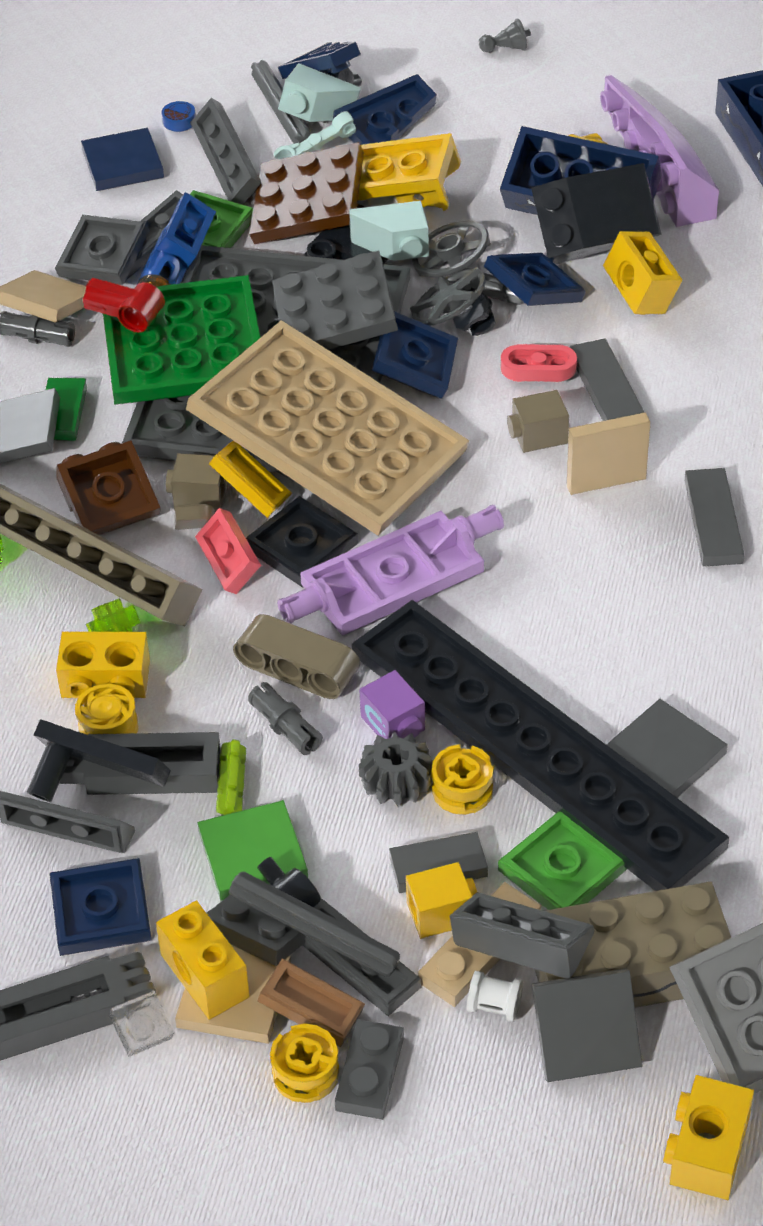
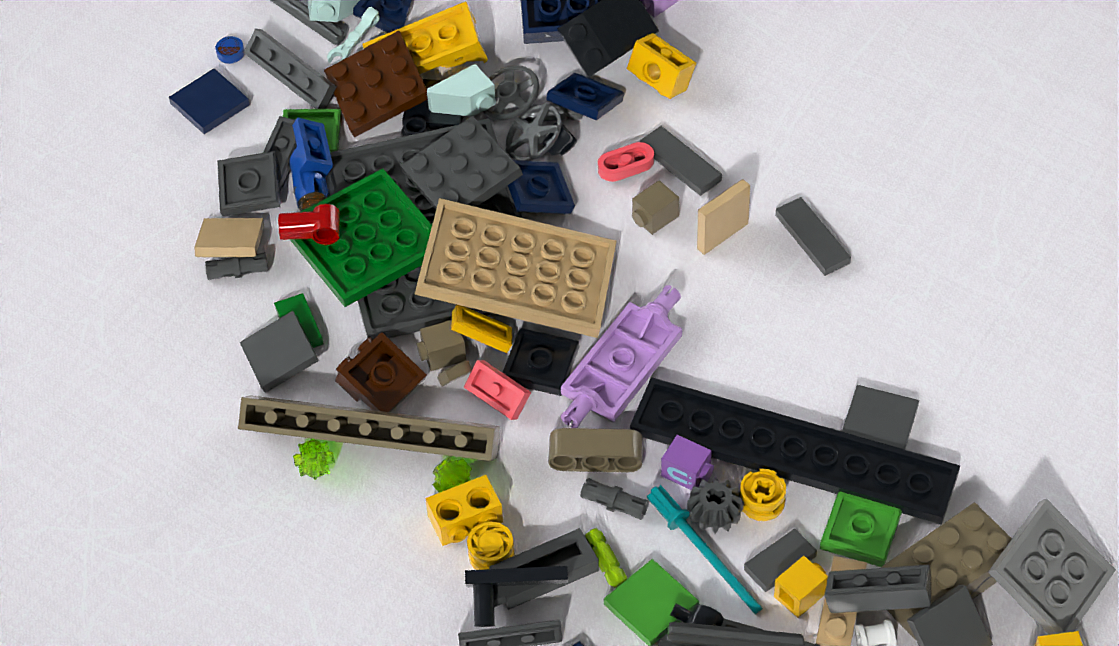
camera: 25 degrees left, 5 degrees up
(343, 768) = (677, 518): none -> teal piece

